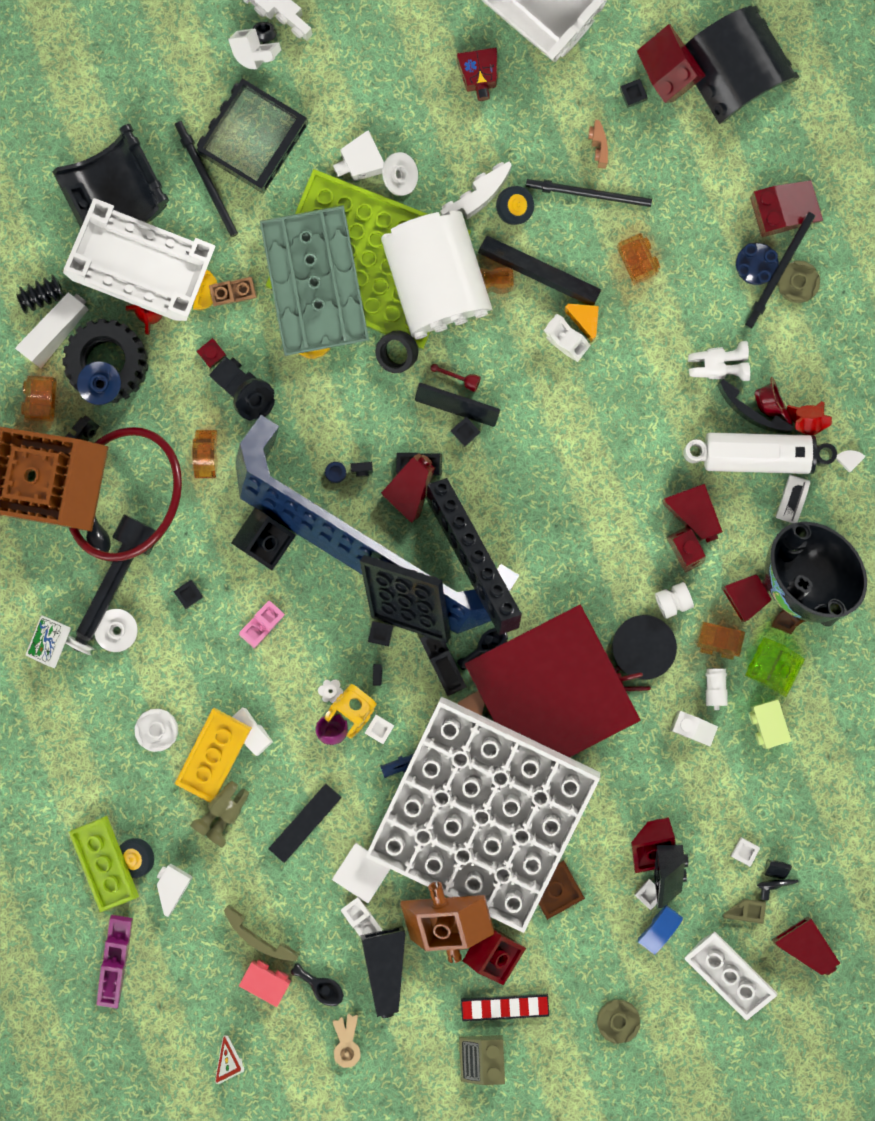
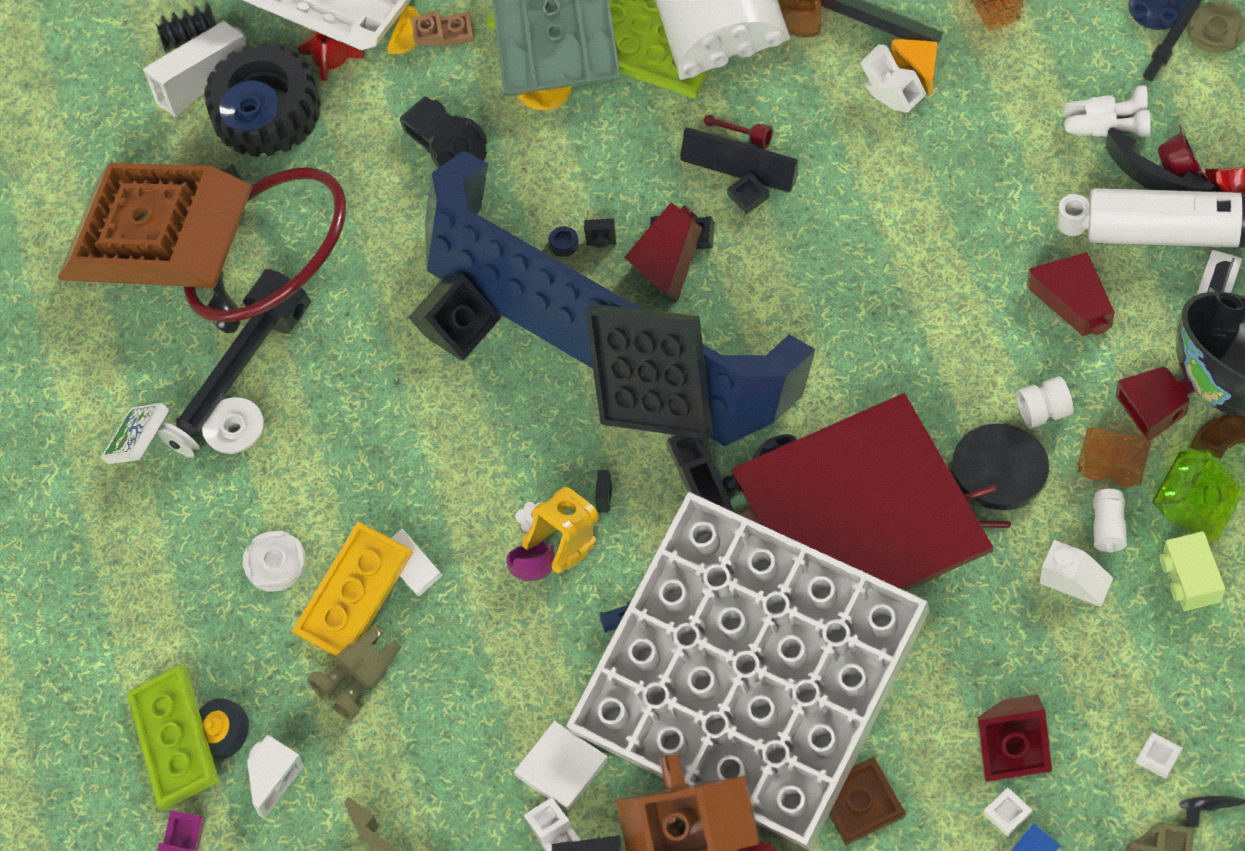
camera: 10 degrees right, 25 degrees down
(39, 399) = (169, 141): clear orange brick -> none
(188, 594) = (341, 384): black plate -> none
(205, 454) = (383, 211): clear orange brick -> none
(211, 353) = (404, 98): dark red plate -> none
(261, 624) = (445, 424): bright pink slope -> none
(305, 823) = (480, 693): black tile -> none
(379, 729) = (601, 565): white plate -> none
(380, 633) = (612, 439): black plate -> none
(385, 361) = (638, 88): black tyre -> none
(473, 556) = (750, 318): black brick -> none
(669, 872) = (1038, 766): black slope -> none
(687, 549) = (1060, 331): dark red torso -> none
(777, 869) = (1210, 778): black slope -> none

